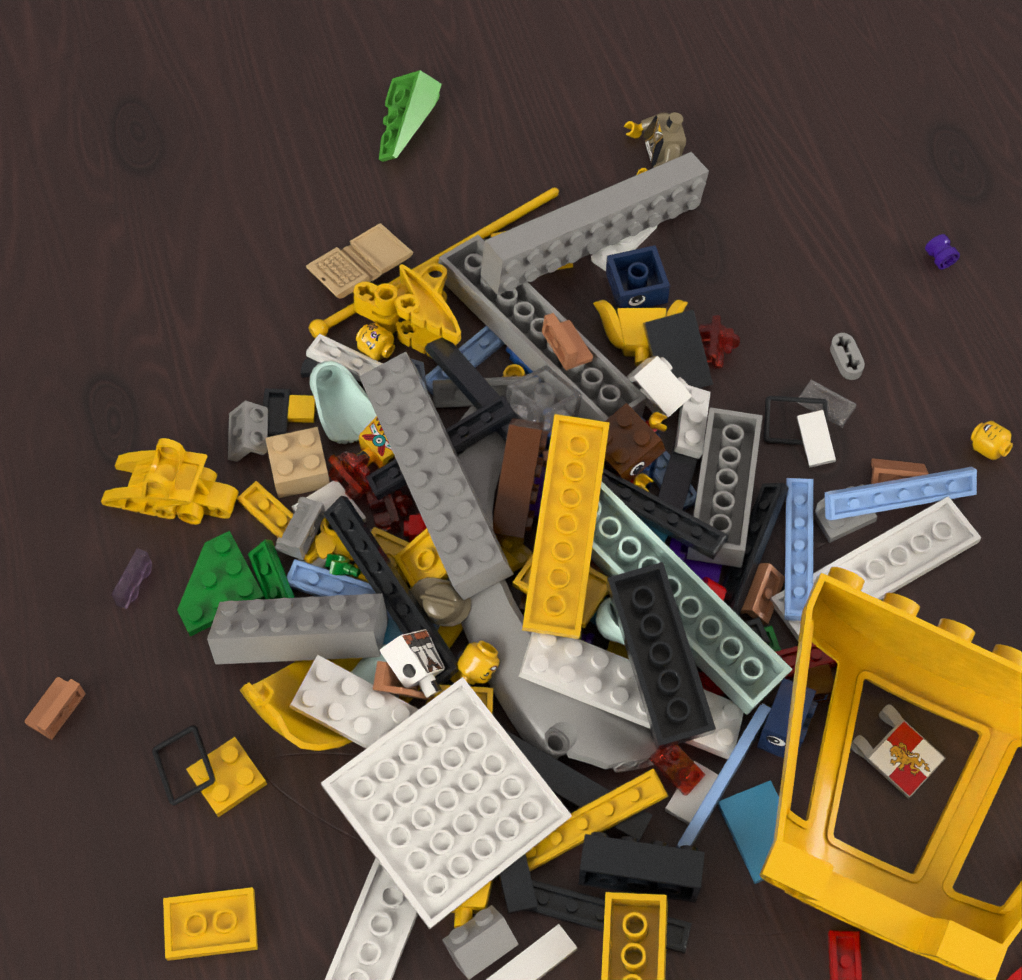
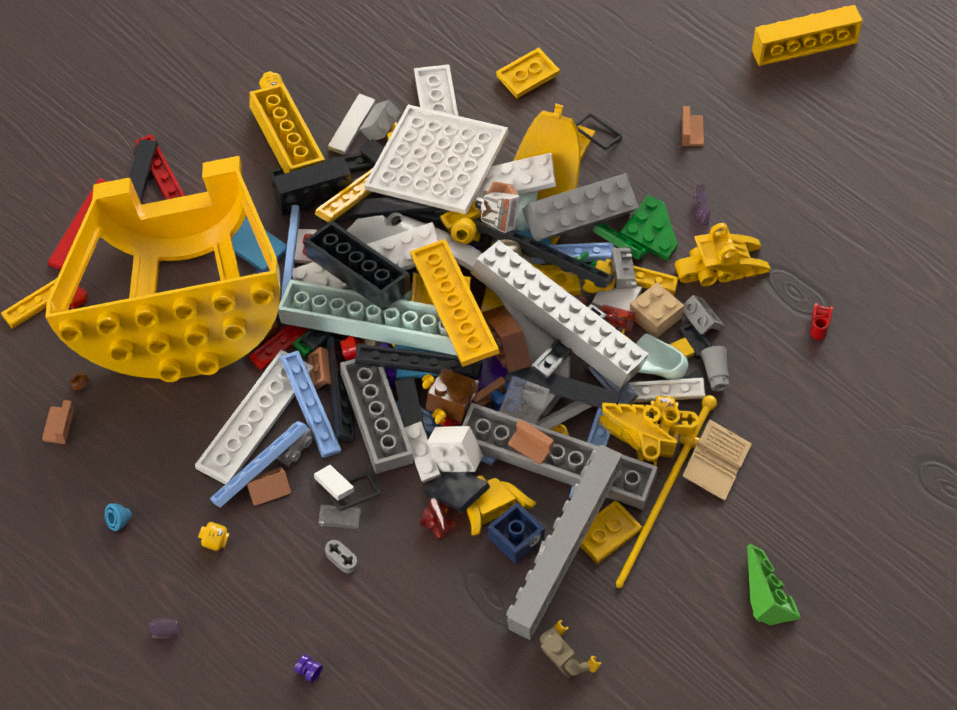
camera: 150 degrees right, 5 degrees down
(115, 361) = (820, 321): none -> red piece
(279, 361) = (716, 367): none -> light grey plant

